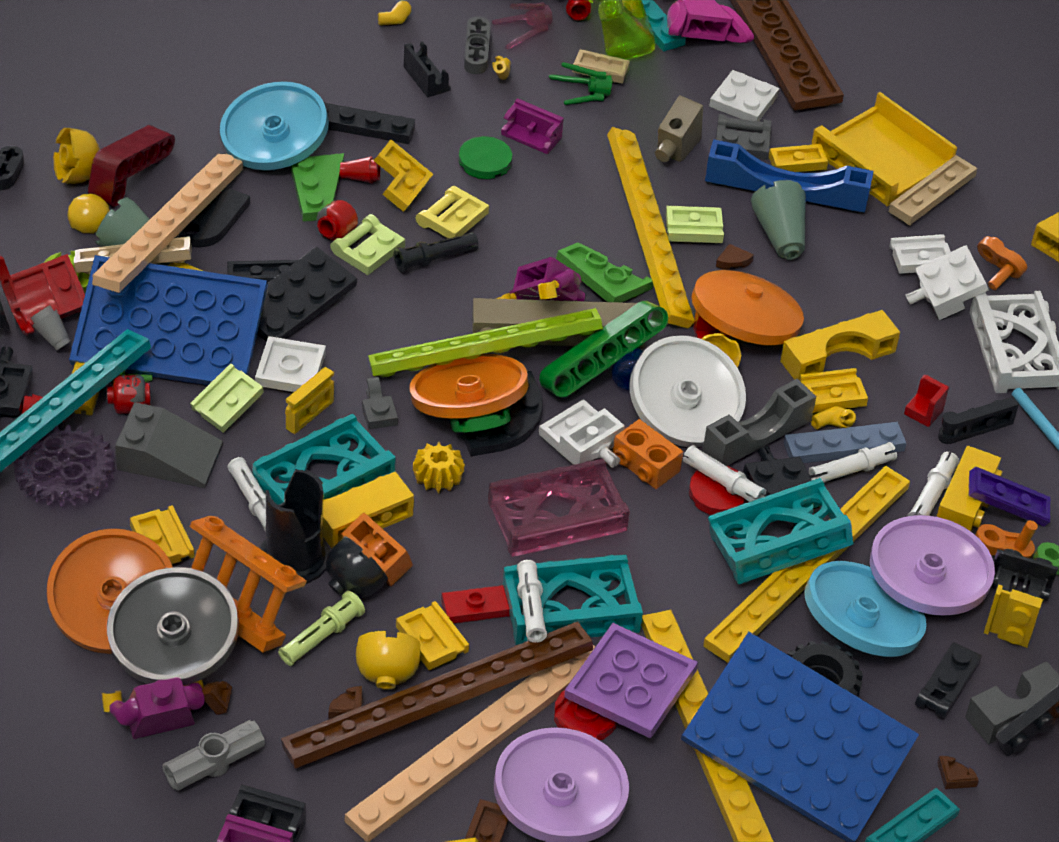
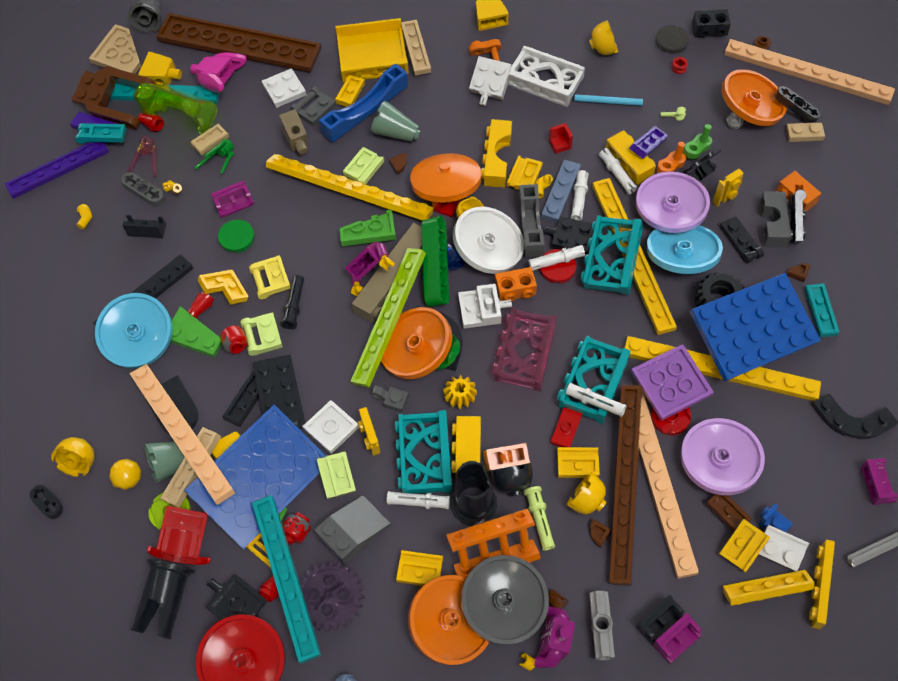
camera: 50 degrees left, 15 degrees up
(50, 326) = (210, 546): light grey cone -> none
(125, 158) = (101, 428): dark red beam -> none
(917, 250) = (457, 79): white plate -> none
(977, 420) = (585, 125): black plate -> none

